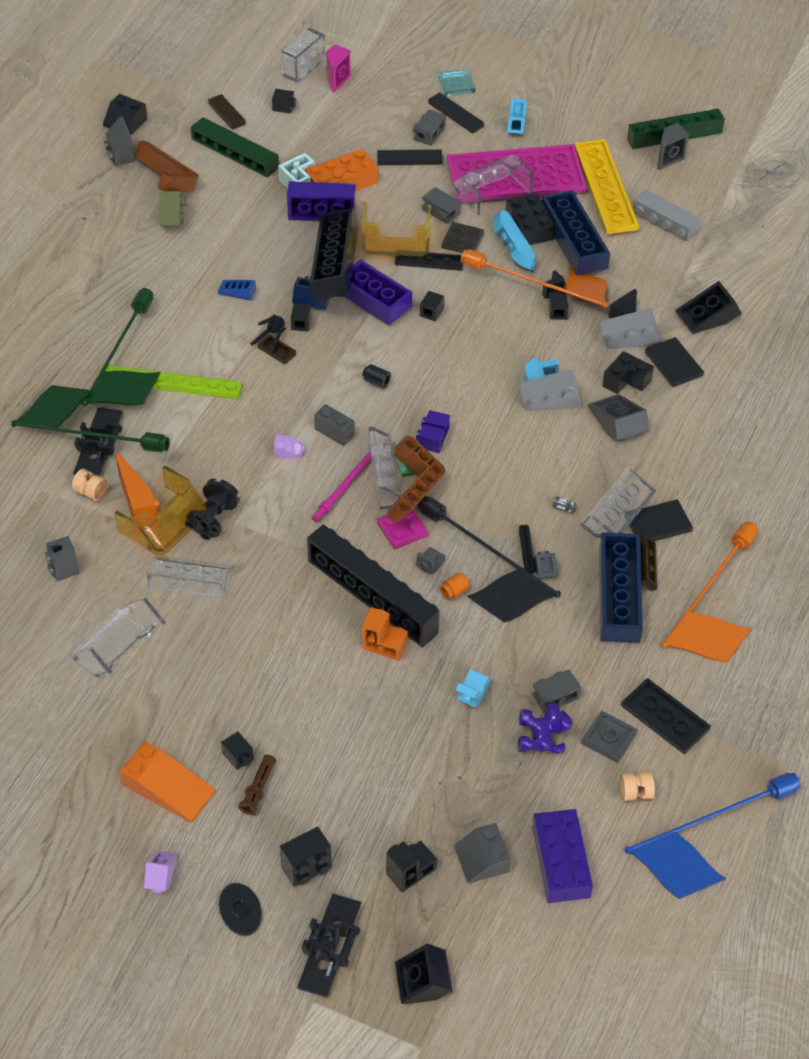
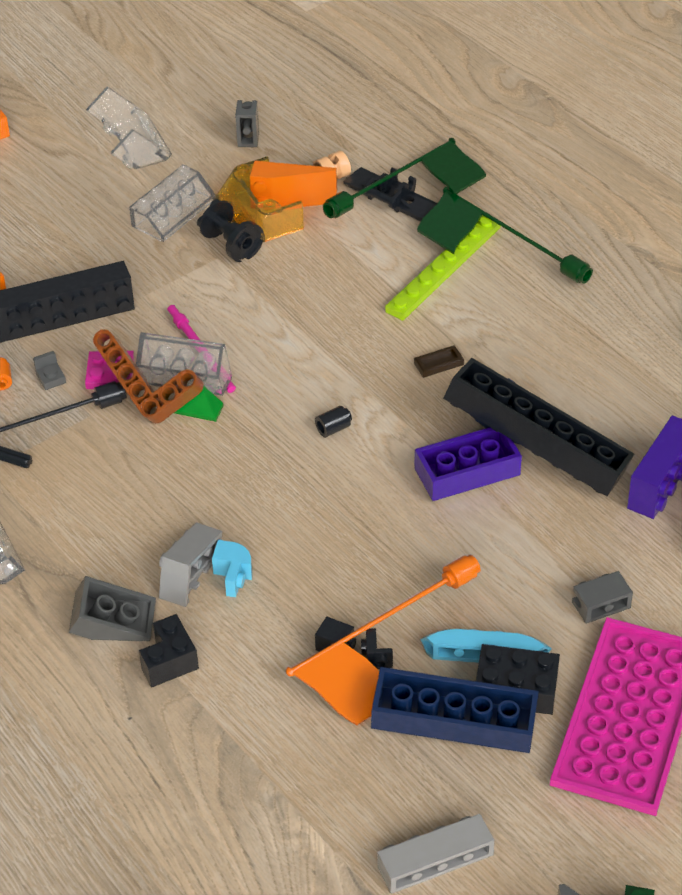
camera: 120 degrees right, 5 degrees down
(242, 288) = (546, 360): blue slope -> none
(275, 325) = (475, 355): black plant -> none
(288, 447) = (283, 318): lavender rock -> none
(334, 424) = (282, 359): dark grey brick -> none
(395, 246) = (558, 514): clear yellow windscreen -> none
(431, 306) = (415, 513): black brick -> none
(432, 260) = (508, 551): black tile -> none
(433, 429) = (211, 431): dark purple piece -> none
(462, 237) = (529, 601): clear smoke plate -> none
(511, 165) = (622, 677): clear windscreen -> none
(562, 504) = (30, 507): dark grey piece -> none
(606, 187) = (547, 811): yellow plate -> none
(623, 305) = (285, 713): black slope -> none
(631, 330) = (230, 691): light grey wedge -> none
(674, 362) = (160, 722): black tile -> none
(709, 309) = (215, 806): black slope -> none

